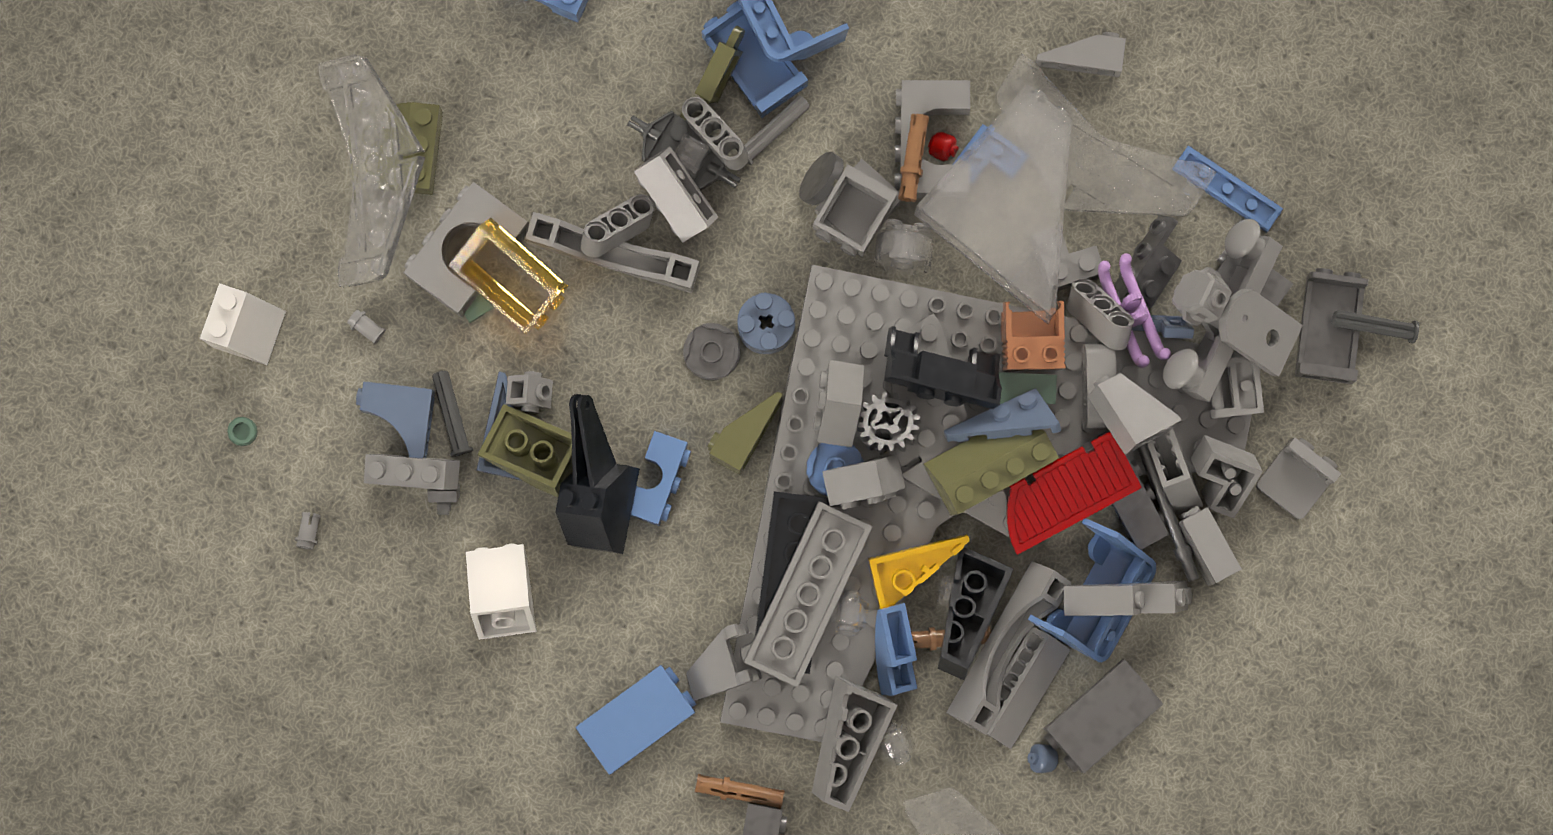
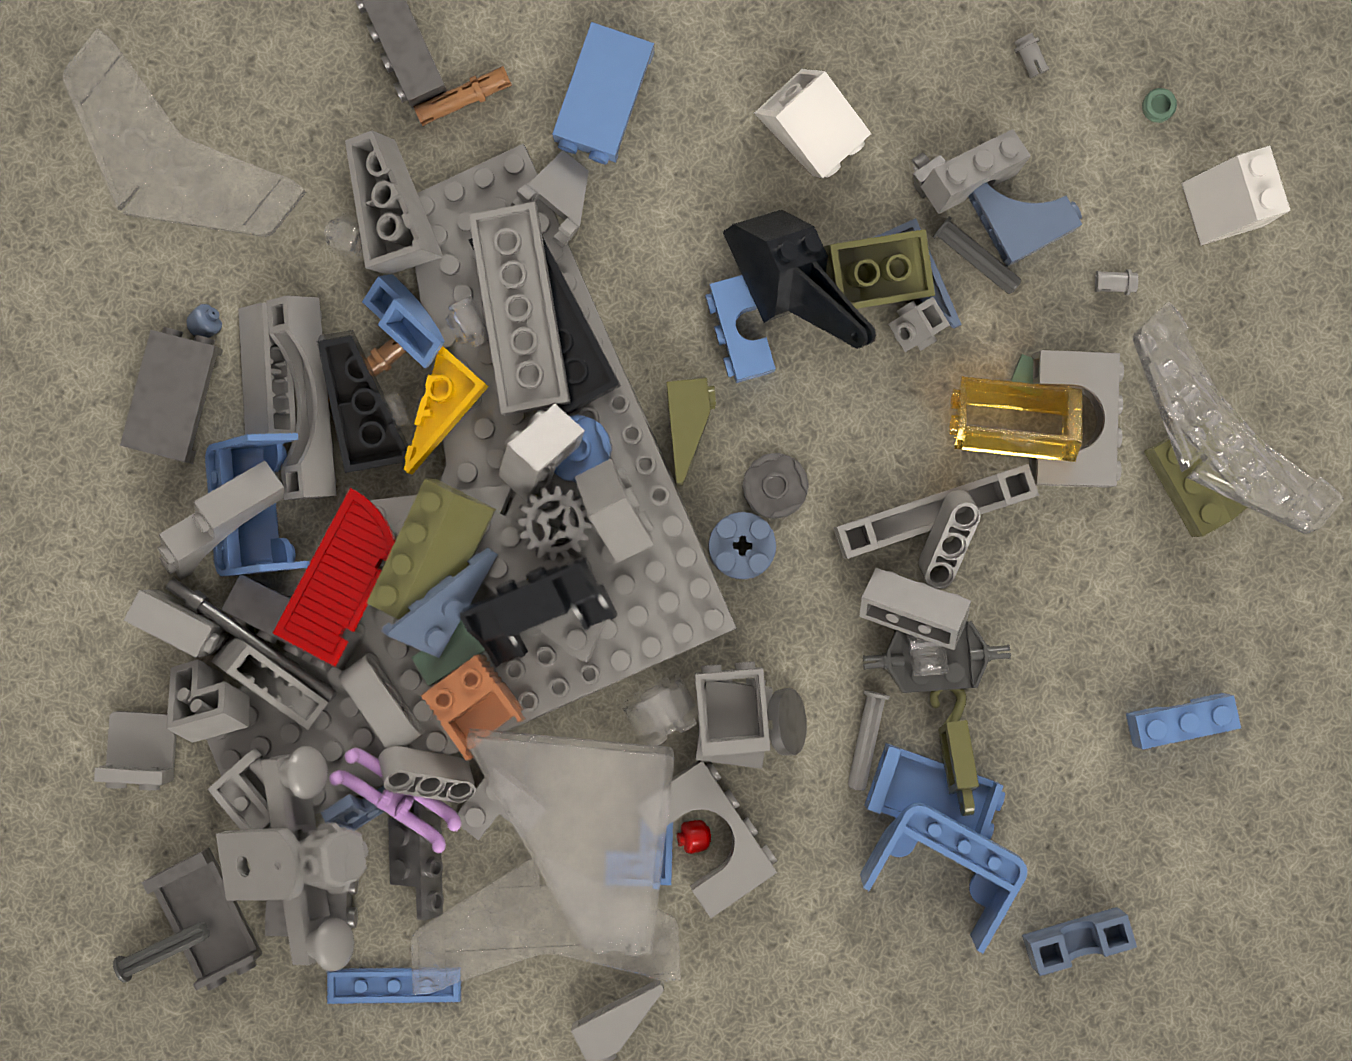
camera: 145 degrees right, 5 degrees up
(710, 121) = (934, 693): light grey beam -> none
(911, 170) = (709, 797): medium nougat pin -> none
(1130, 412) = (327, 695): light grey slope -> none

